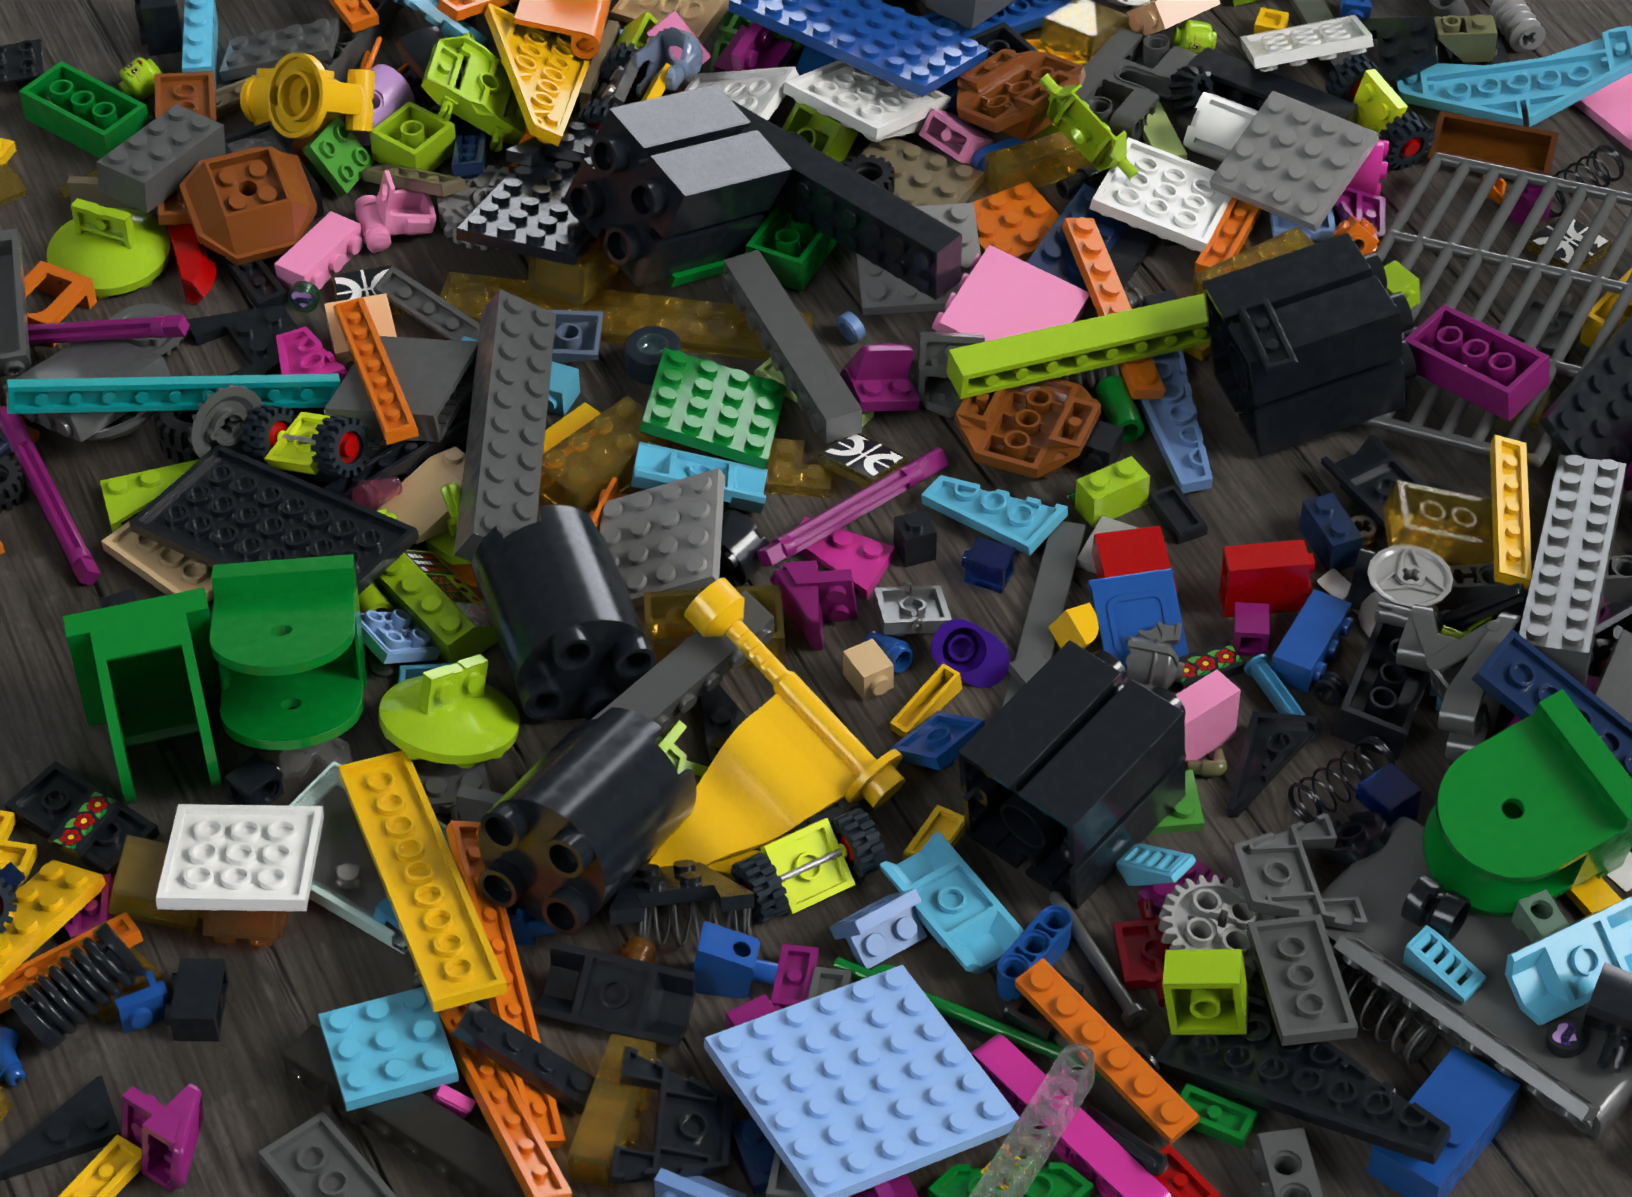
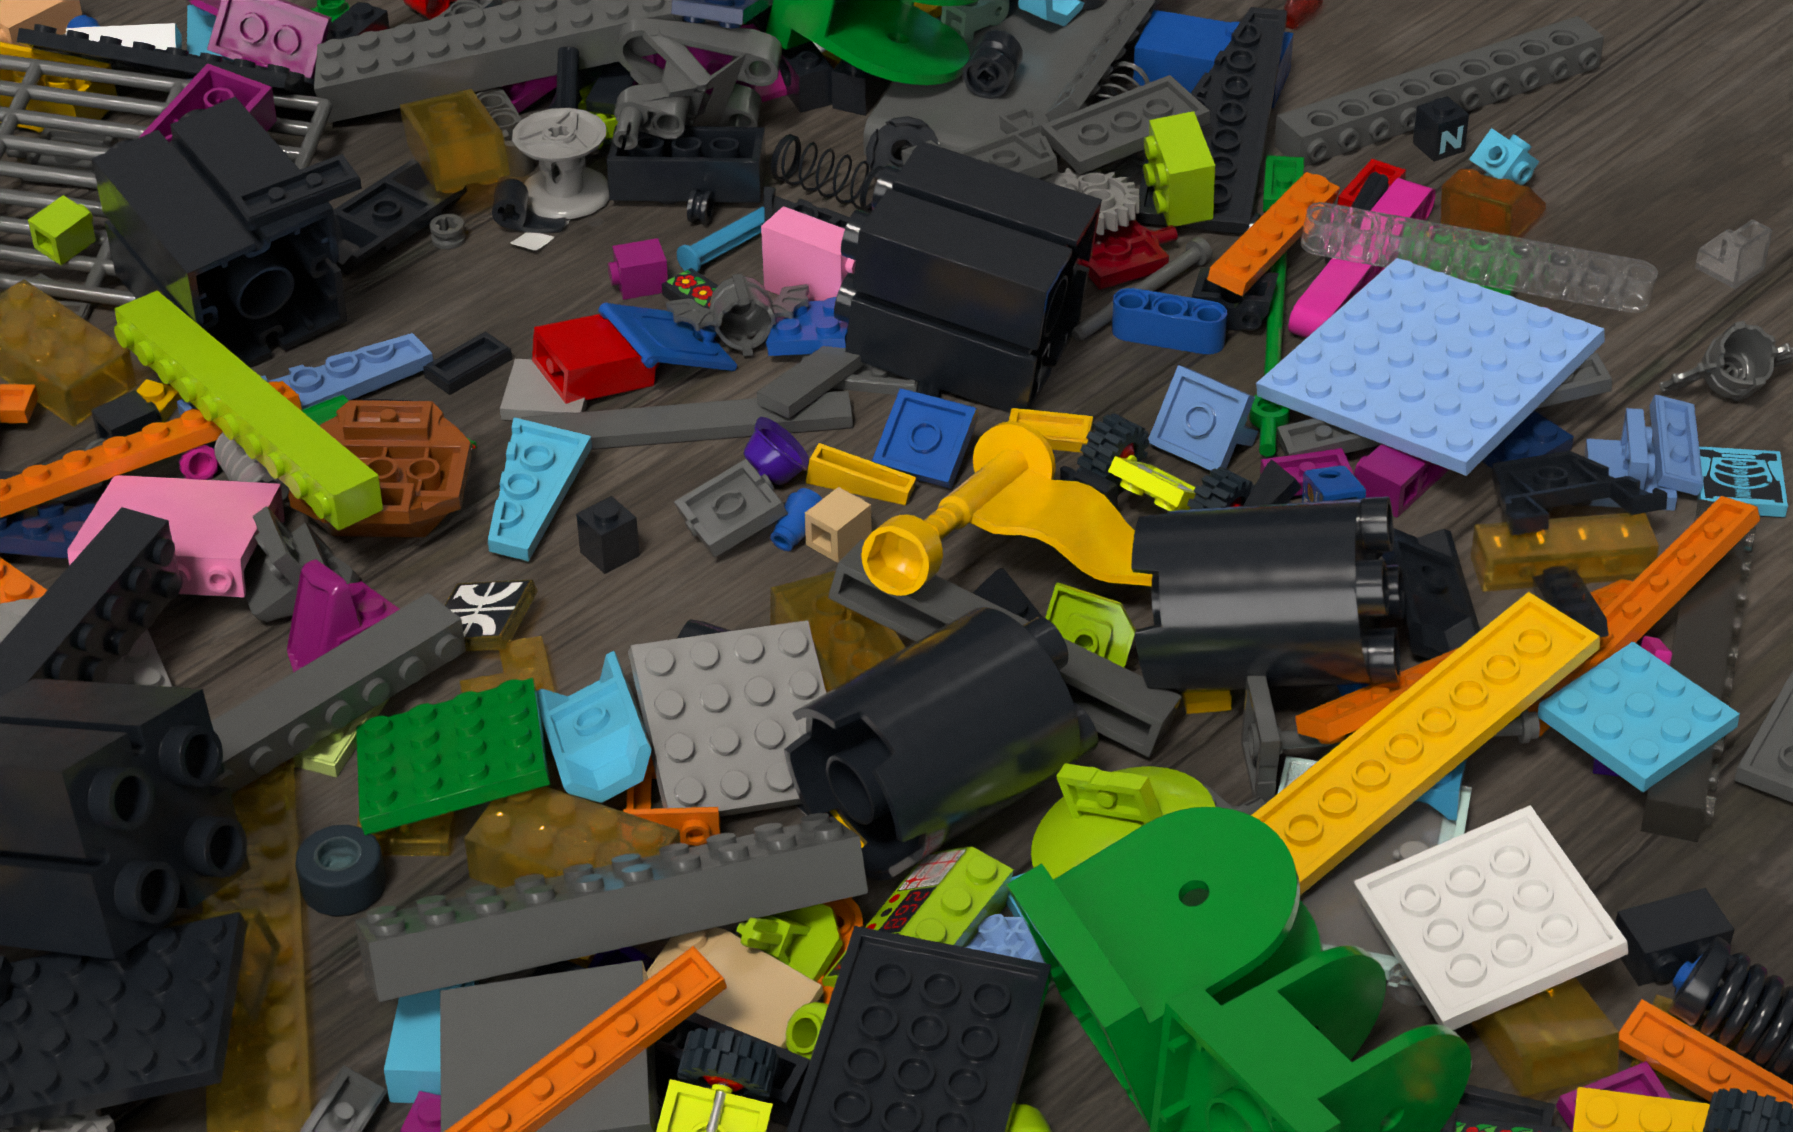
camera: 110 degrees left, 5 degrees down
(376, 492) = (782, 1025): clear pink cone -> none
(576, 335) = (329, 967): sand blue slope -> none
(815, 597) = (764, 564): magenta piece -> none
(851, 327) = (222, 690): medium blue tile -> none
(852, 551) = (646, 599): dark pink wing -> none
(853, 507) = (587, 587): magenta piece -> none
(955, 905) = (1136, 379): medium azure piece -> none
(989, 564) = (623, 469): clear blue brick -> none
(1077, 625) = (705, 379): yellow brick -> none
(1112, 491) = (466, 399): lime brick -> none
(1266, 574) = (574, 255): red brick -> none
(1312, 640) = (620, 220): blue brick -> none
(1330, 532) = (469, 238): dark blue brick -> none
(1390, 794) = (843, 133): clear blue piece -> none
(1440, 948) = (1046, 65): medium azure slope -> none
(1510, 511) = (442, 89): yellow plate -> none

